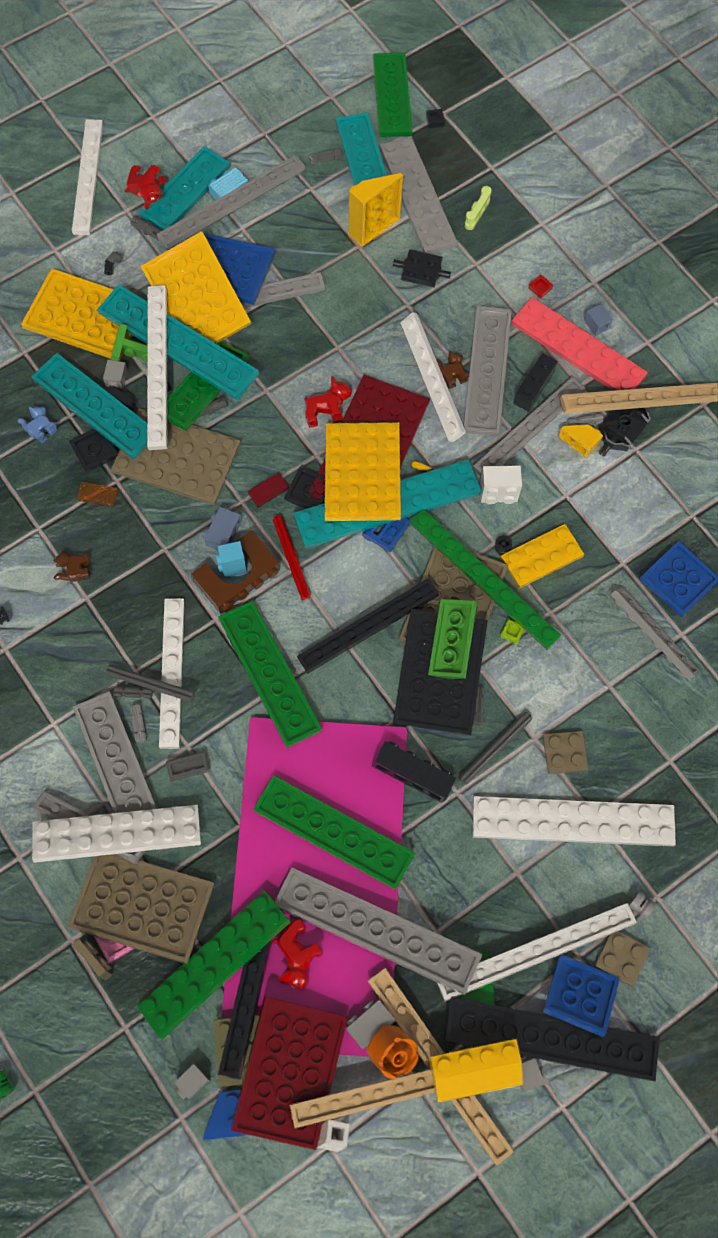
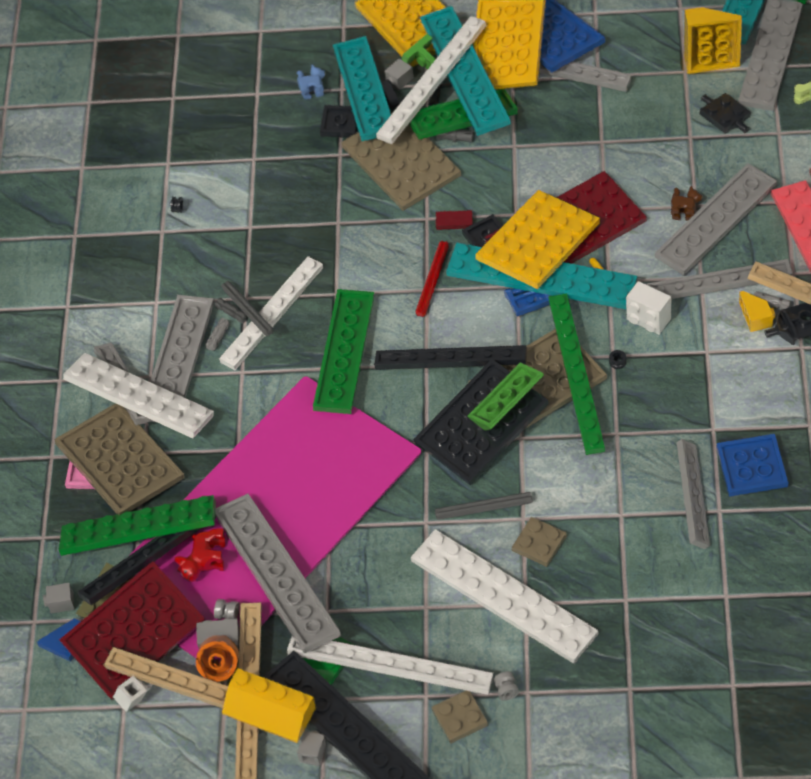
camera: 45 degrees right, 15 degrees down
(74, 567) = (257, 198): reddish brown animal -> none
(89, 953) = (54, 471): dark tan plate -> none
(97, 494) = (317, 156): clear orange tile -> none
(187, 766) = (229, 383): dark grey plate -> none
(223, 528) = (392, 229): sand blue brick -> none
(224, 594) = (400, 273): reddish brown arch -> none
(231, 559) = (379, 251): medium azure brick -> none
(327, 403) = (554, 177): red animal -> none
(334, 832) = (301, 490): green plate -> none
(363, 992) = (226, 609): none -> light grey wheel
(413, 771) = (398, 481): black brick -> none
(433, 377) = (662, 201): white plate -> none
(478, 718) = (494, 467): dark grey axle -> none
(512, 631) = (569, 429): lime tile -> none
(535, 382) = (750, 247): black brick -> none
(542, 556) = (644, 385): yellow plate -> none
(581, 995) = (399, 715): blue plate -> none

